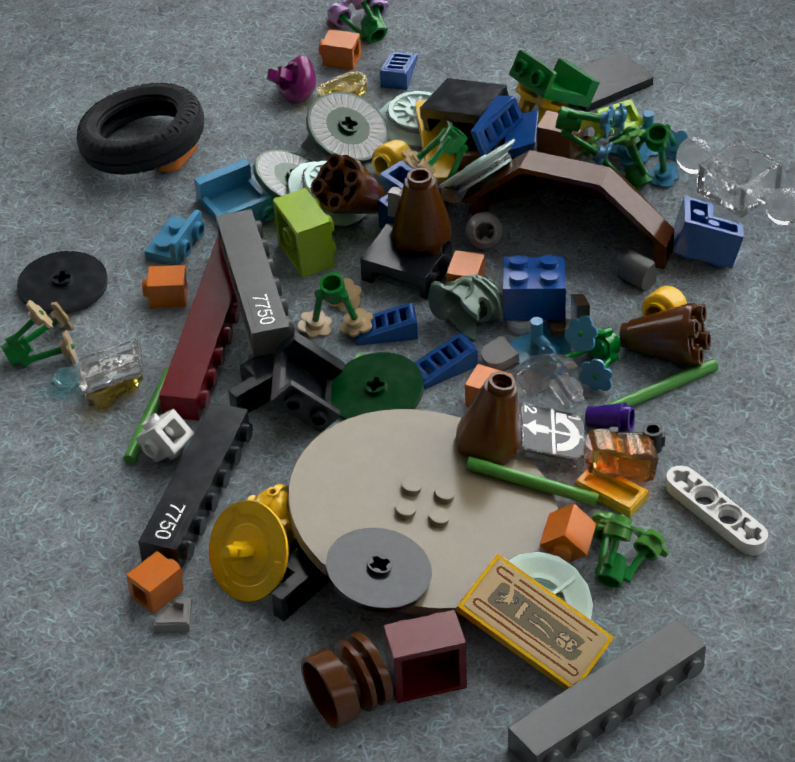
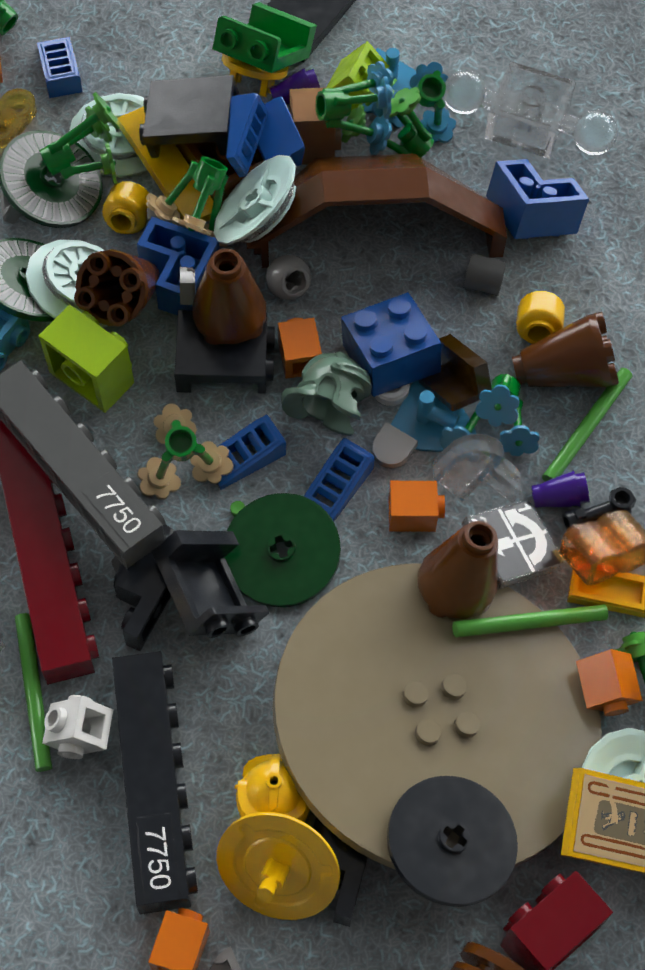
camera: 30 degrees left, 20 degrees up
(357, 109) = (59, 155): none -> green plant

